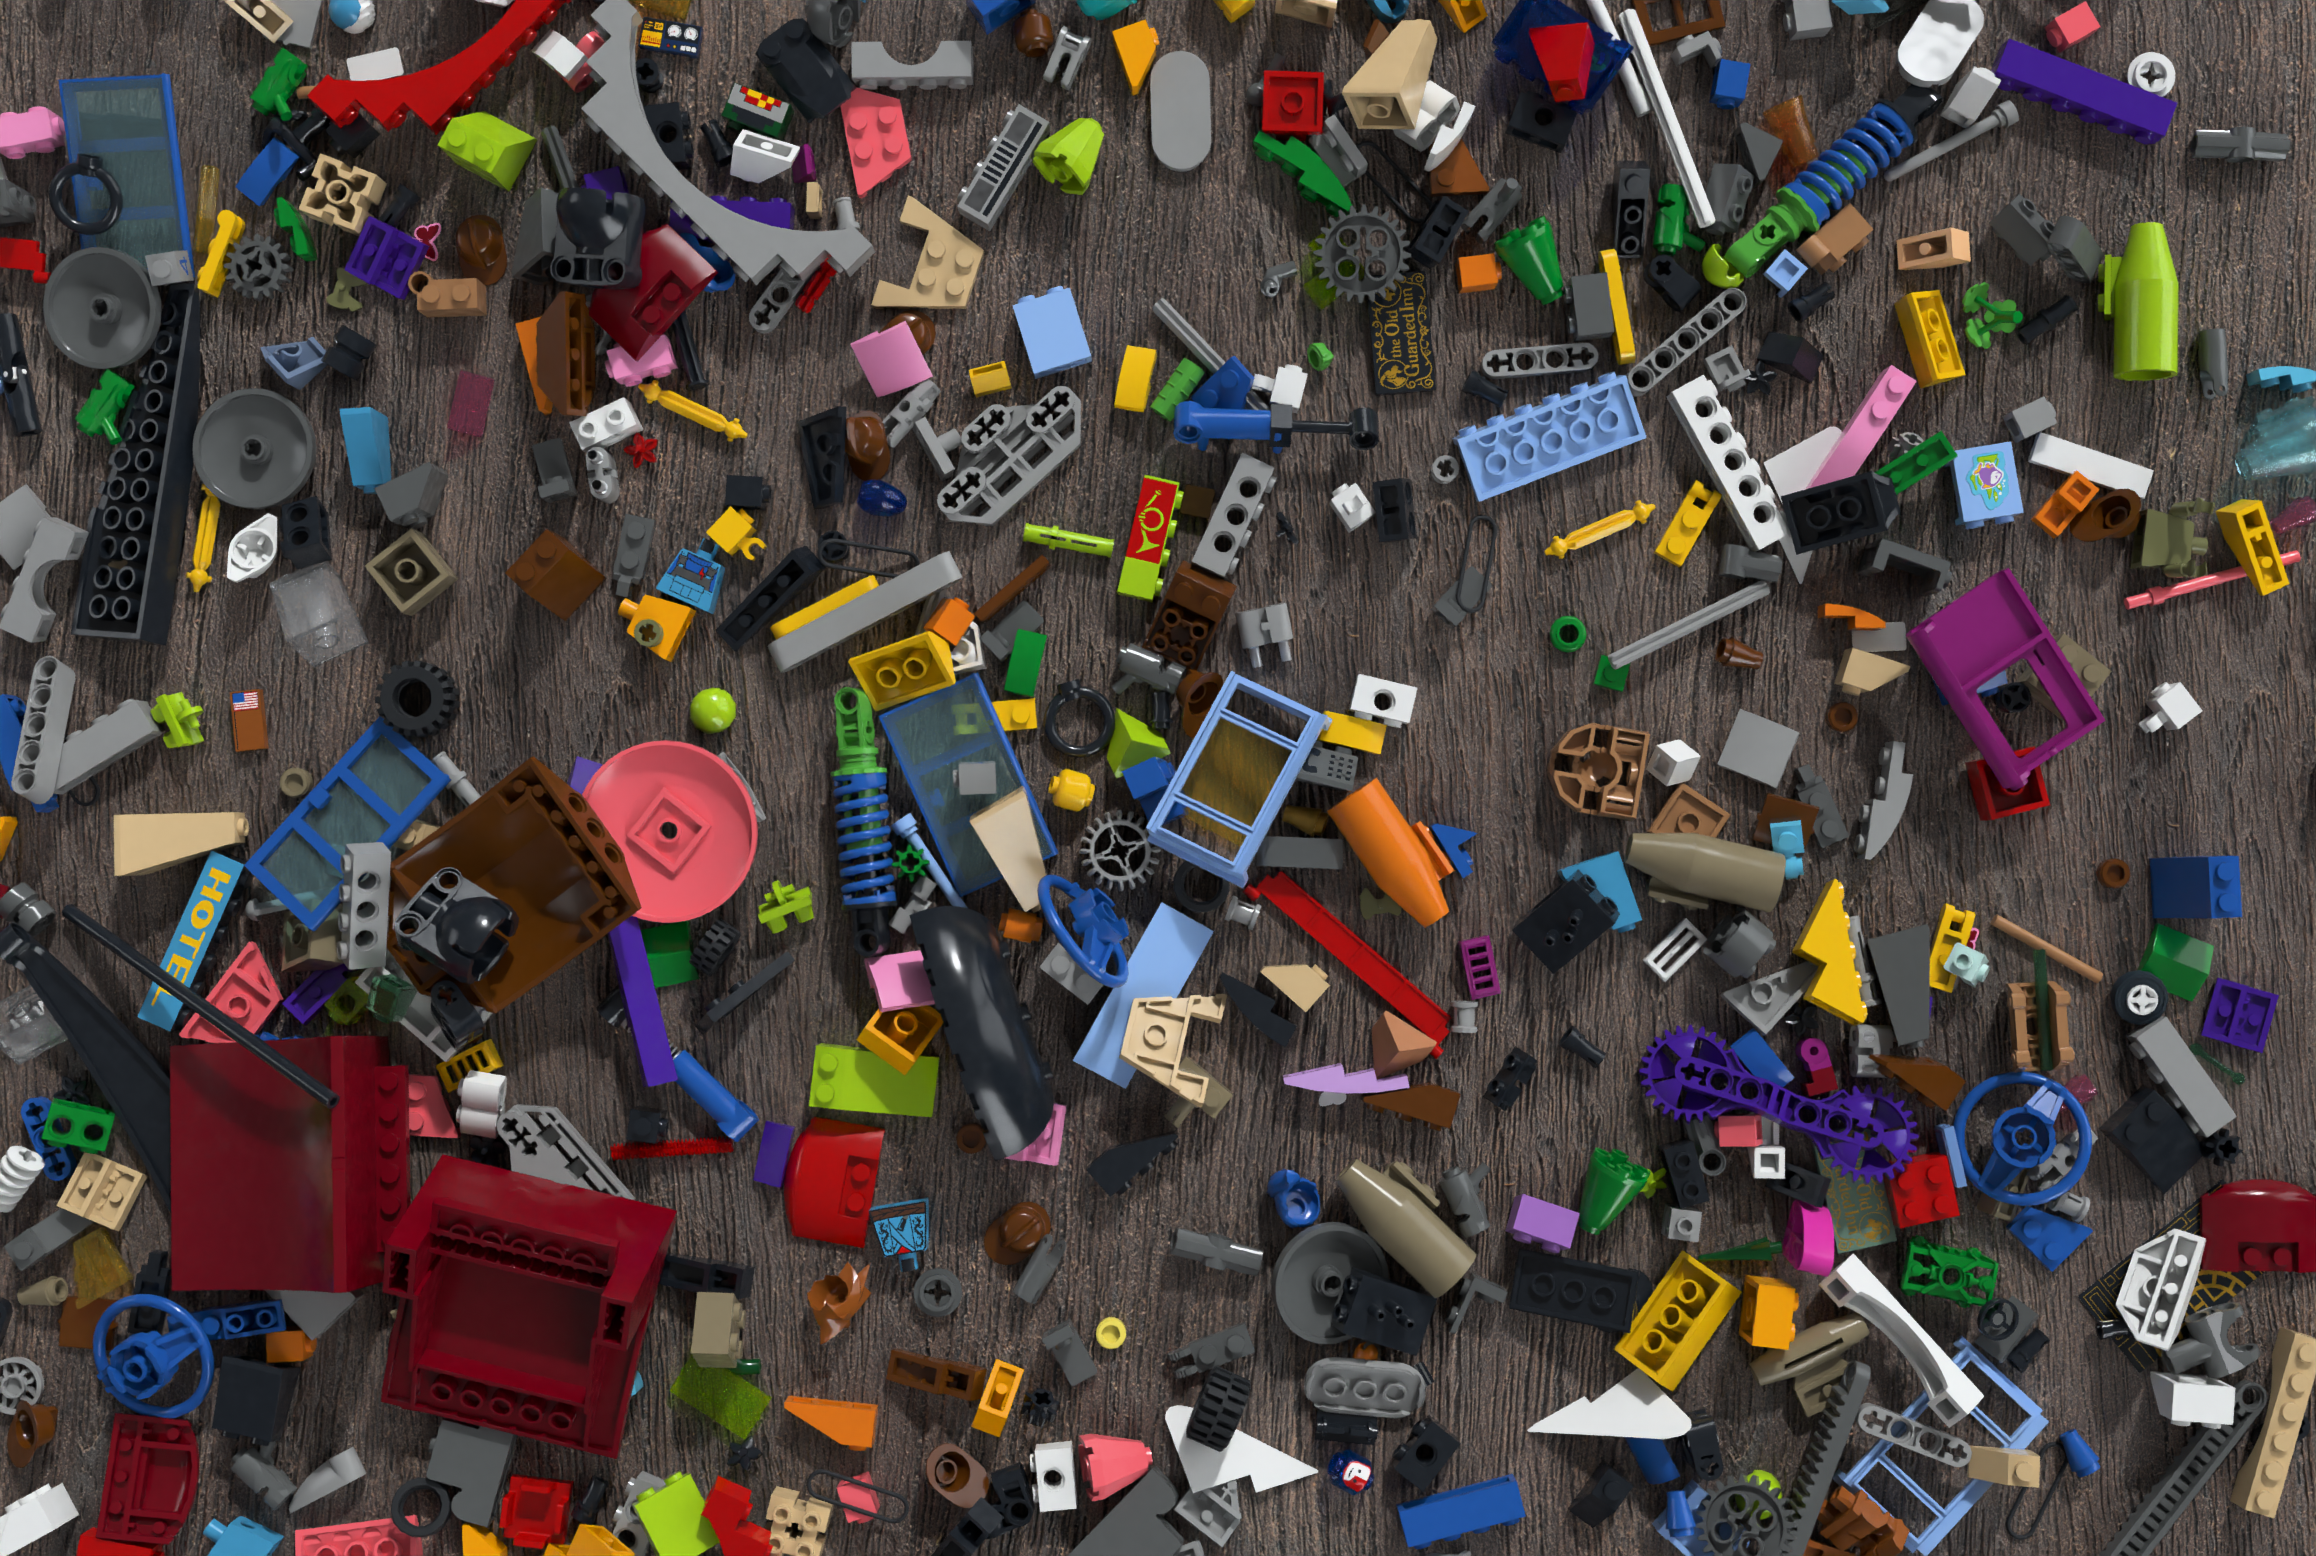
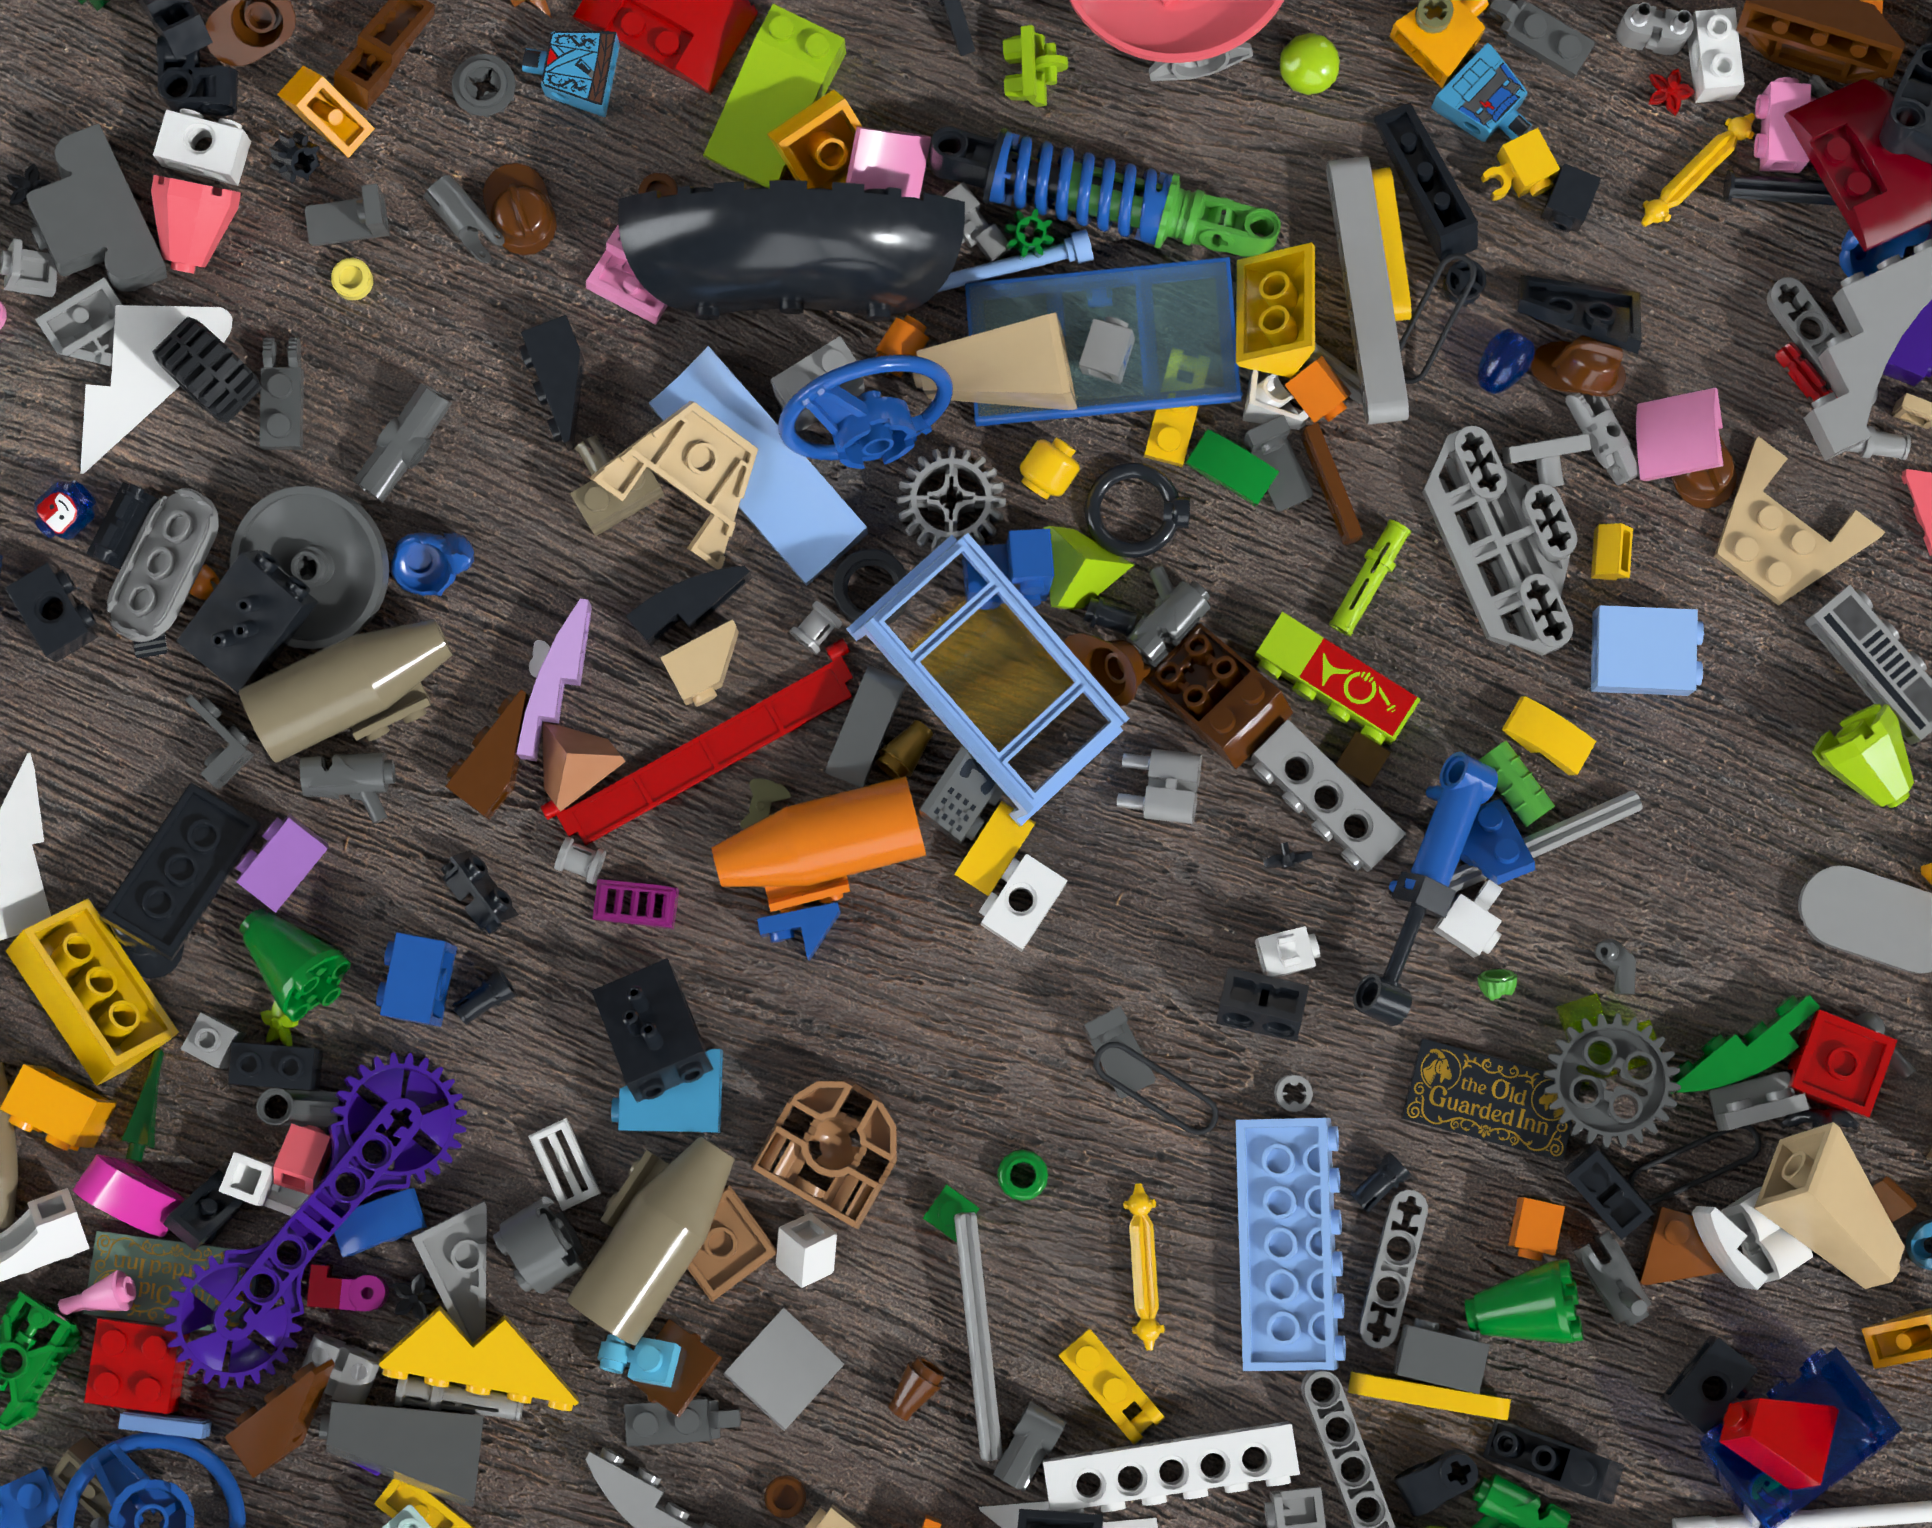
camera: 105 degrees right, 5 degrees down
(1590, 1097) = (416, 979): none -> blue brick
(1878, 1225) = (109, 1294): none -> bright pink cone

